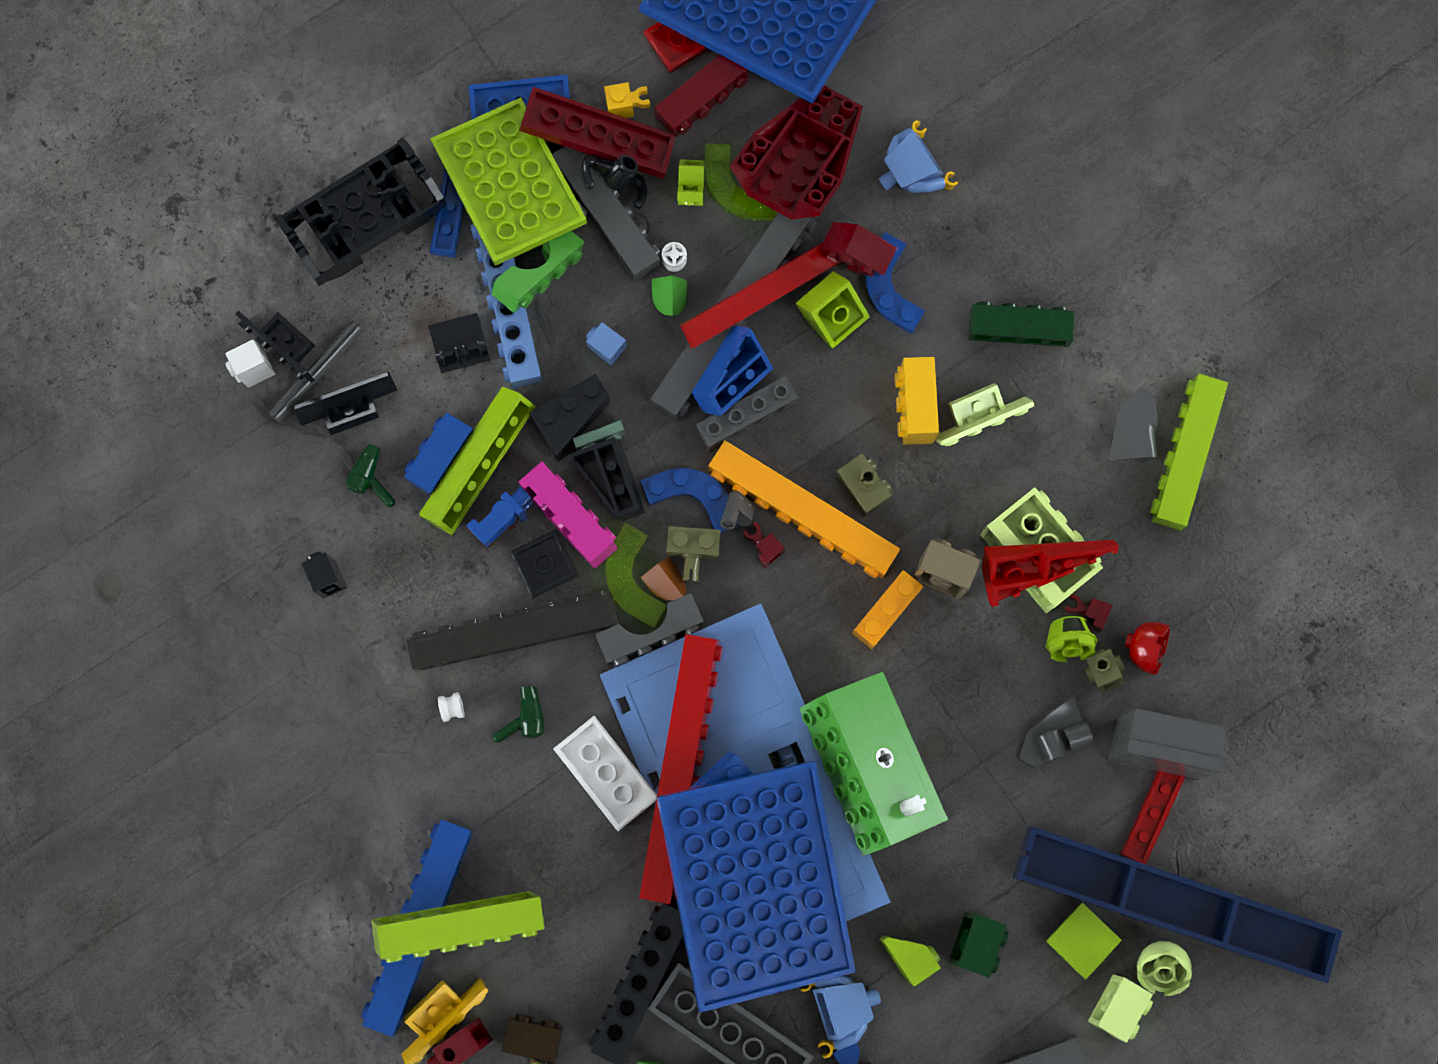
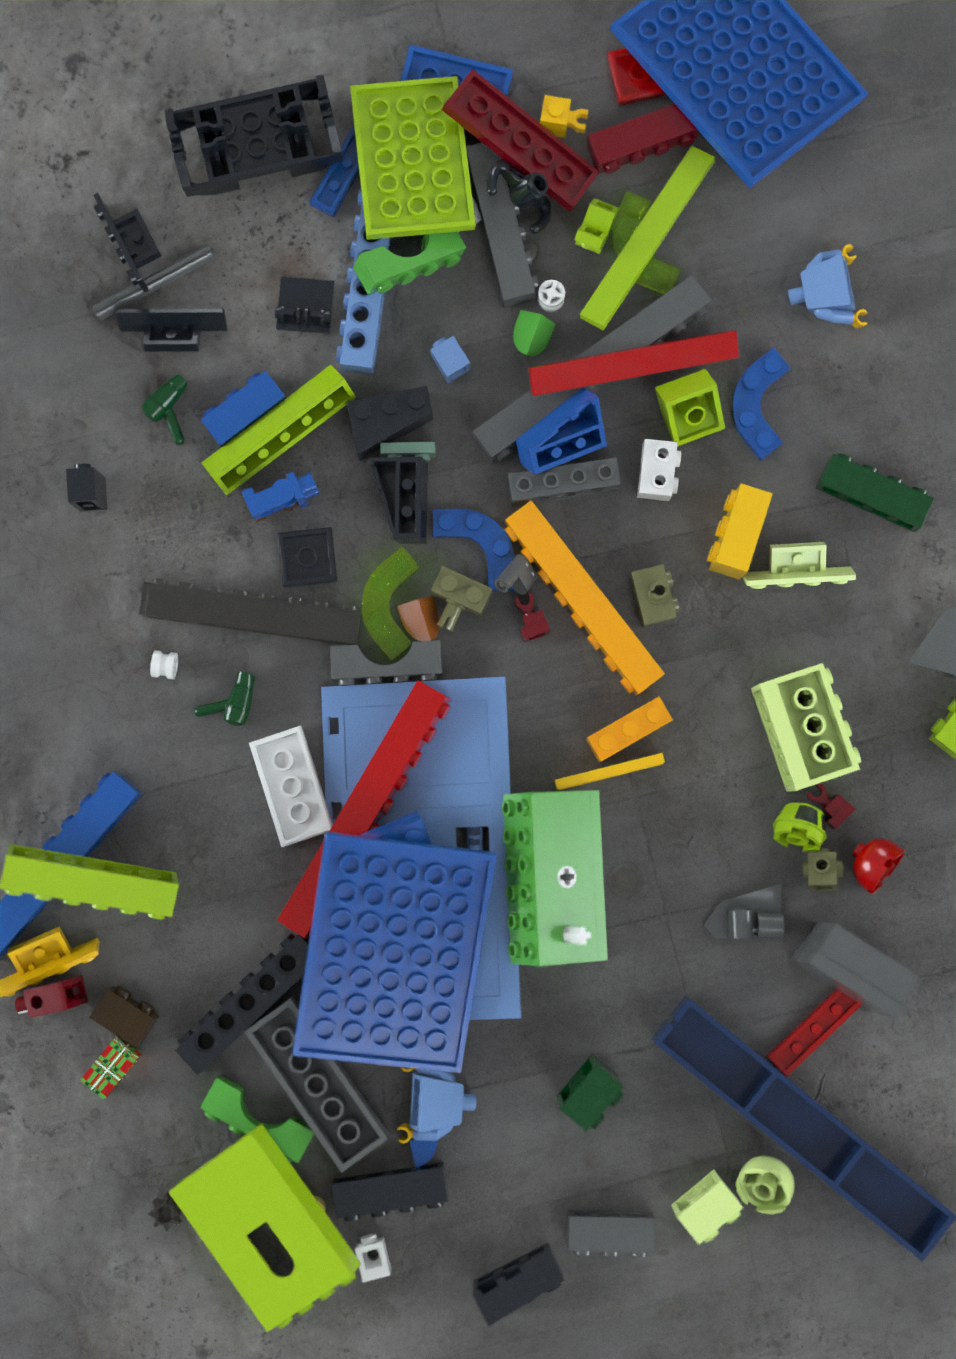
camera: 25 degrees right, 5 degrees up
(249, 364) = (89, 250): white brick -> none
(568, 514) = (347, 517): dark pink wedge -> none
(734, 198) = (647, 238): none -> lime tile
(800, 155) = (716, 237): dark red wedge -> none
(826, 373) = (658, 470): none -> white brick
(858, 249) = (738, 355): dark red brick -> none
(884, 653) = (608, 772): none -> yellow tile
(912, 958) = (521, 1080): lime slope -> none
(946, 568) = (702, 711): dark tan brick -> none
(1019, 567) = (775, 738): red wedge -> none
(1083, 940) = (697, 1126): lime tile -> none

